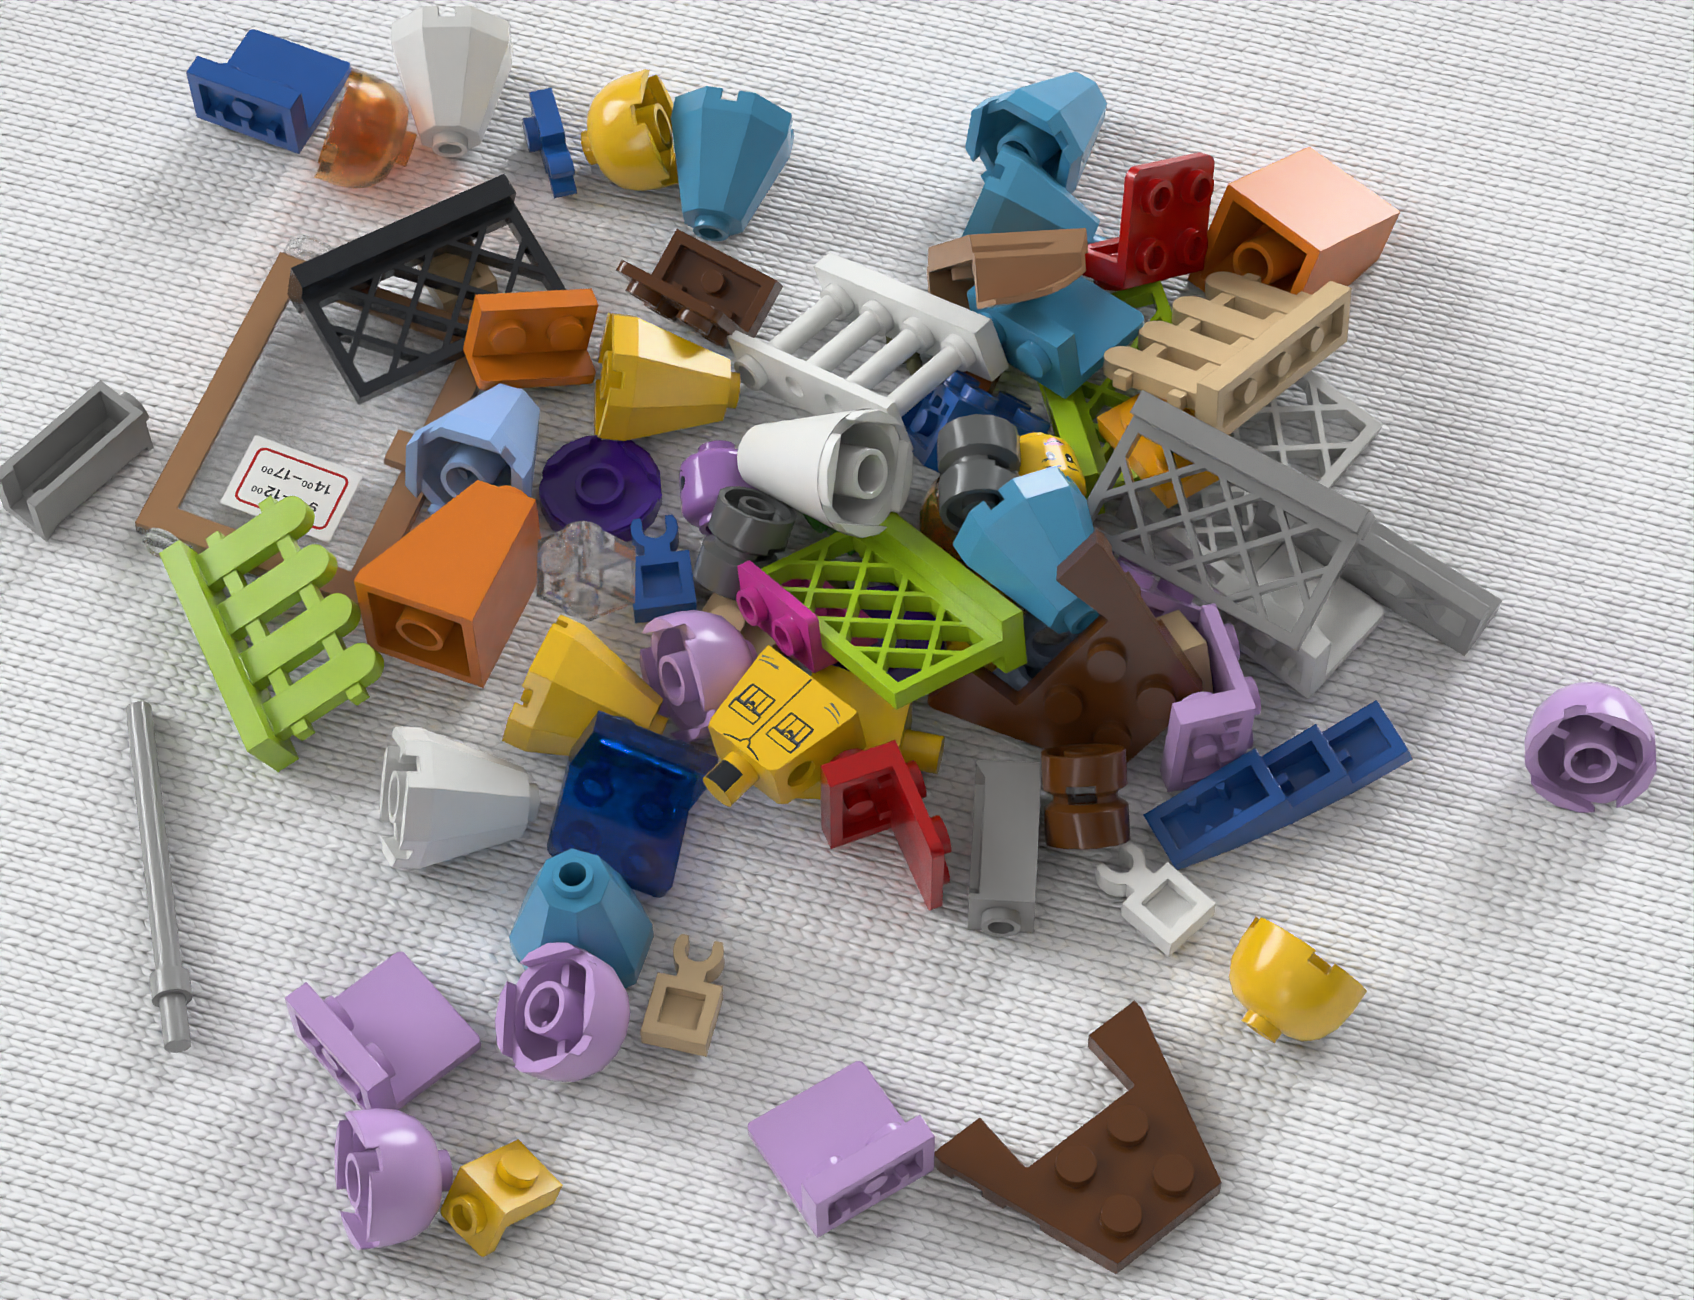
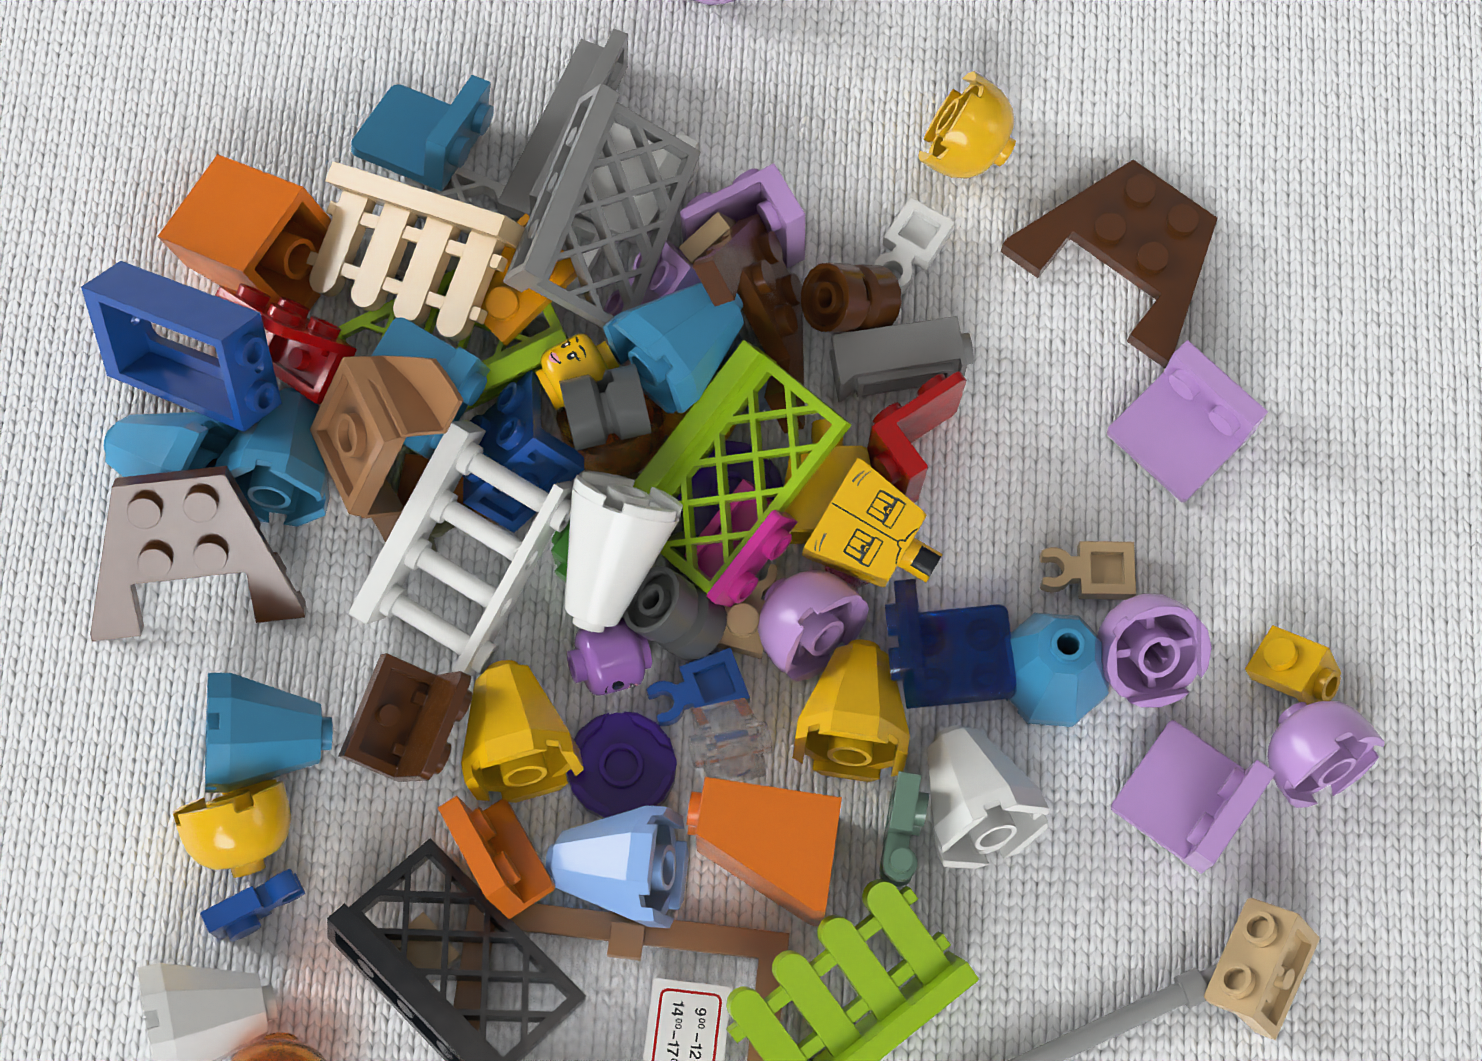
camera: 105 degrees left, 15 degrees up
(160, 1056) = (1262, 966): none -> tan bracket
(431, 699) = (904, 818): none -> sand green plate
(951, 119) = (184, 529): none -> wing
(1156, 125) = (230, 389): none -> blue piece
(1277, 789) = (760, 140): blue slope -> none
(1396, 412) = (423, 134): none -> dark azure bracket

